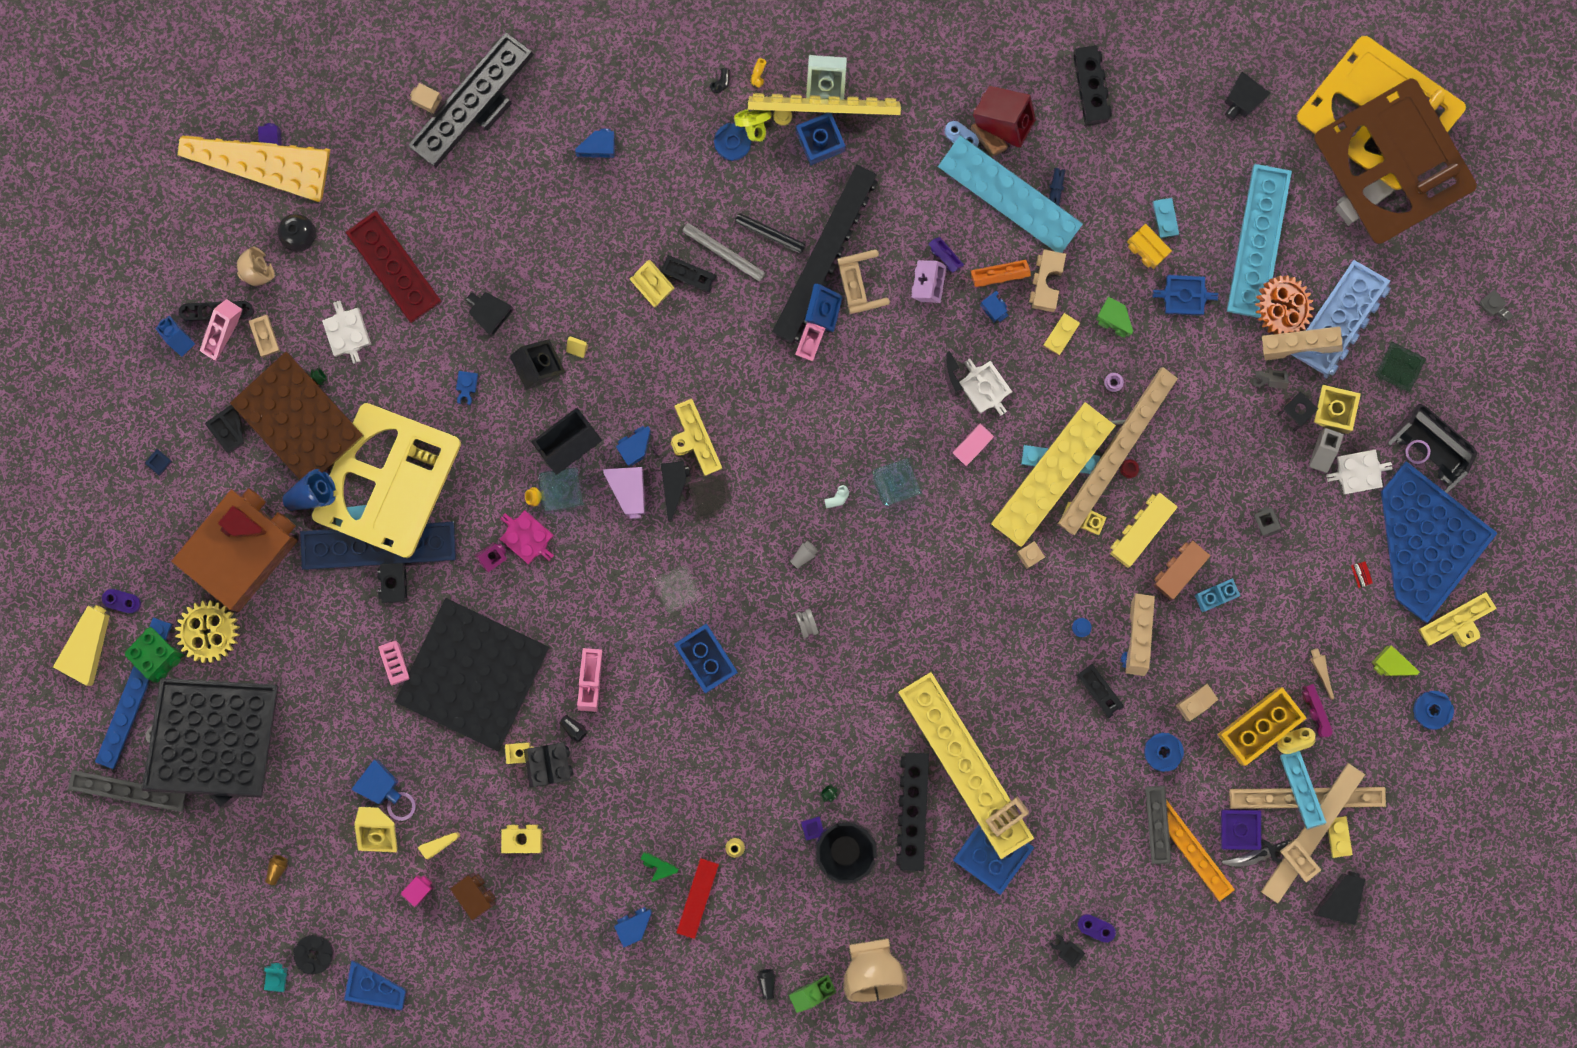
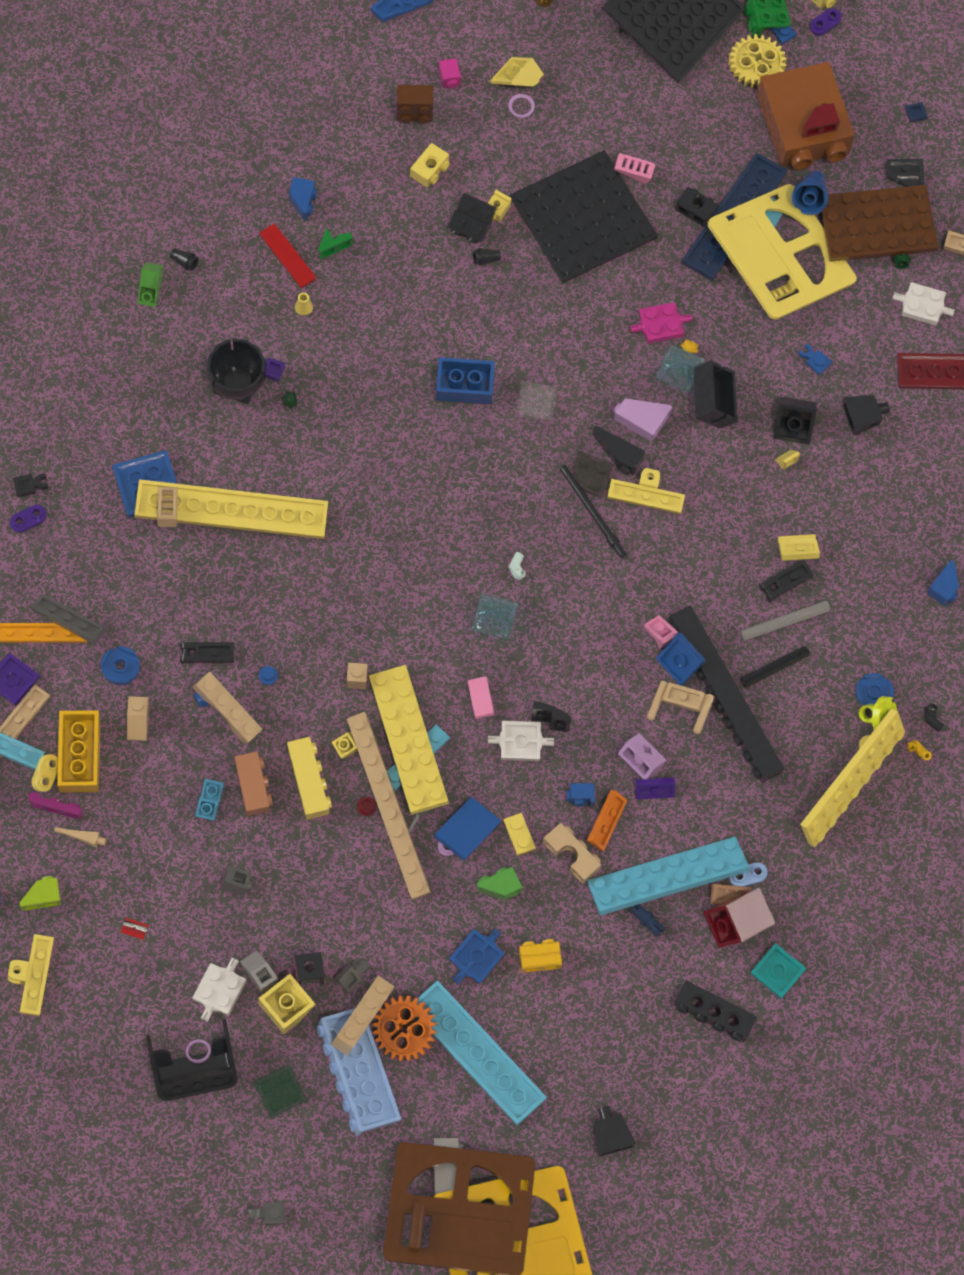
camera: 120 degrees right, 15 degrees down
(377, 784) = (550, 98): blue torso -> none
(433, 847) = (473, 104): light yellow slope -> none
(490, 564) = (661, 281): magenta brick -> none
(589, 680) = (514, 291): bright pink slope -> none
(635, 447) = (672, 445): blue slope -> none
(756, 438) = (612, 540): none -> black bar
(804, 554) = (491, 511): light grey cone -> none
(807, 623) = (434, 471): light grey wheel -> none
(820, 138) = (826, 755): blue brick -> none
(826, 76) = (878, 800): light aqua slope -> none
(873, 967) = (131, 329): tan plate -> none
(916, 861) = (260, 480): black brick -> none
(1022, 60) = (778, 971): none -> teal plate
(1090, 375) = (467, 829): none -> blue tile
(1165, 218) = (554, 991): medium azure plate -> none
(1428, 540) = (118, 1001): blue plate -> none

